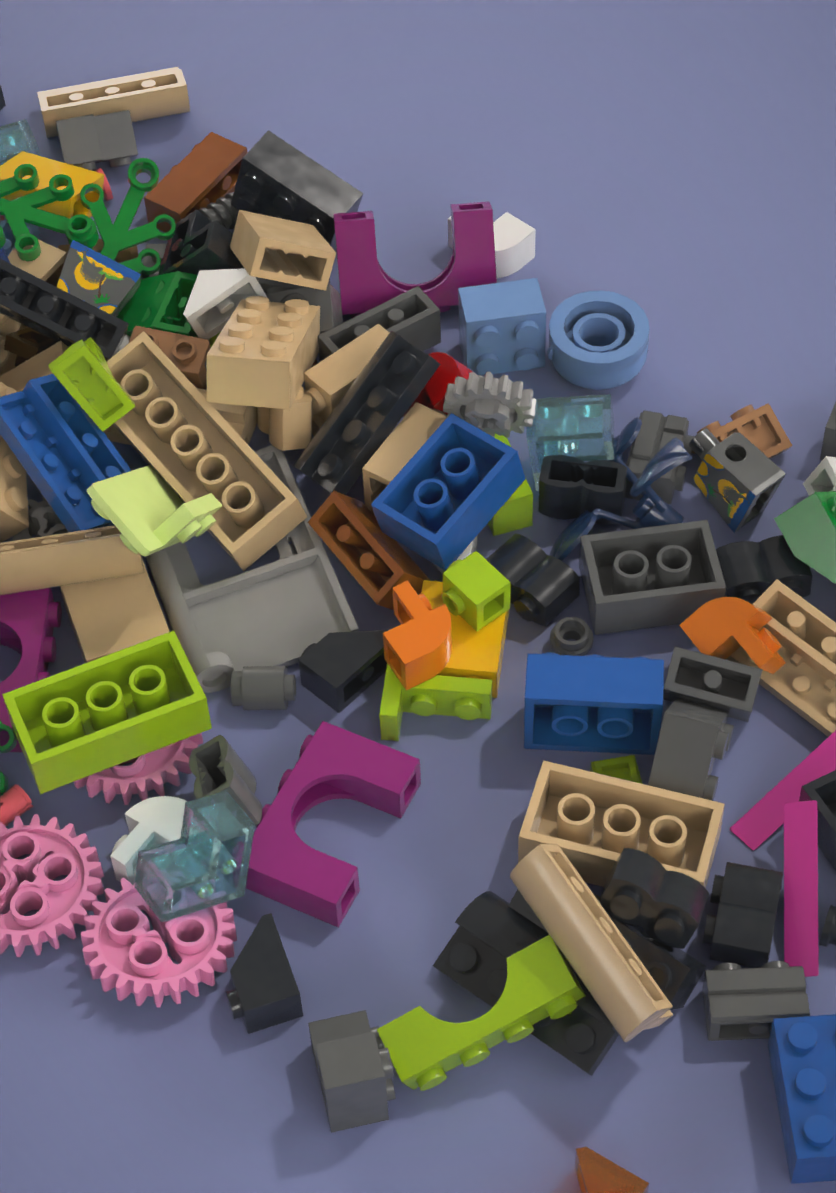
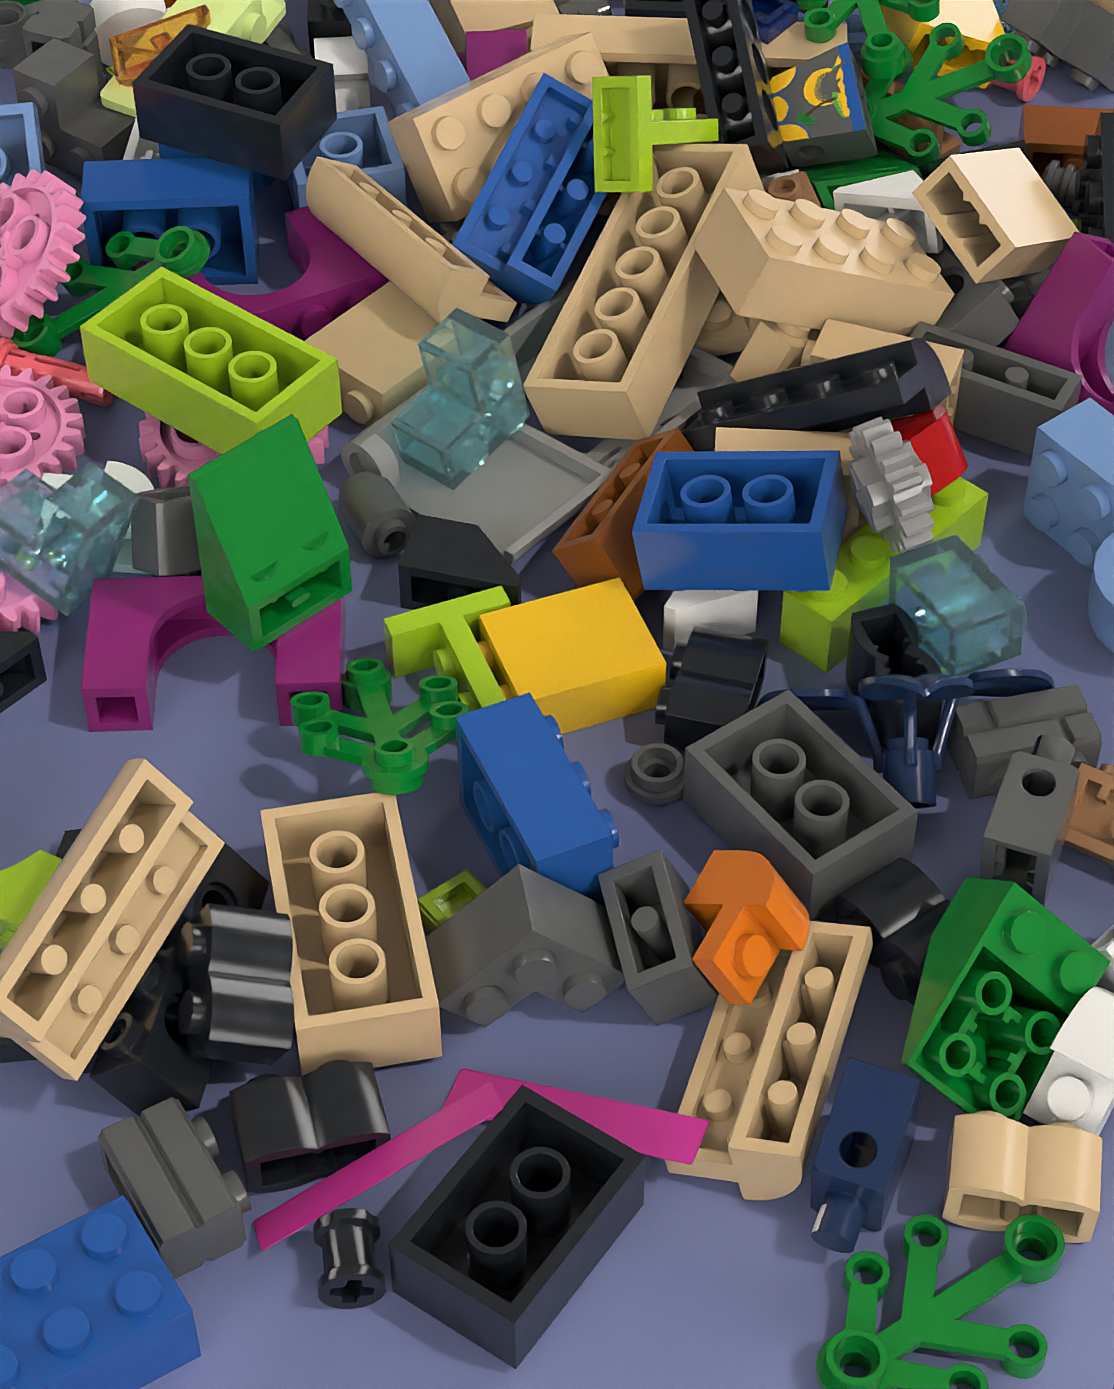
camera: 60 degrees right, 5 degrees down
(150, 511) = (488, 259): yellowish green bracket -> none
(218, 586) = (470, 400): none -> clear light blue brick
(318, 736) = (267, 536): none -> green slope
(422, 641) = (503, 602): orange brick -> none
(475, 590) = (616, 618): lime brick -> none
(525, 750) = (394, 762): none -> green plant

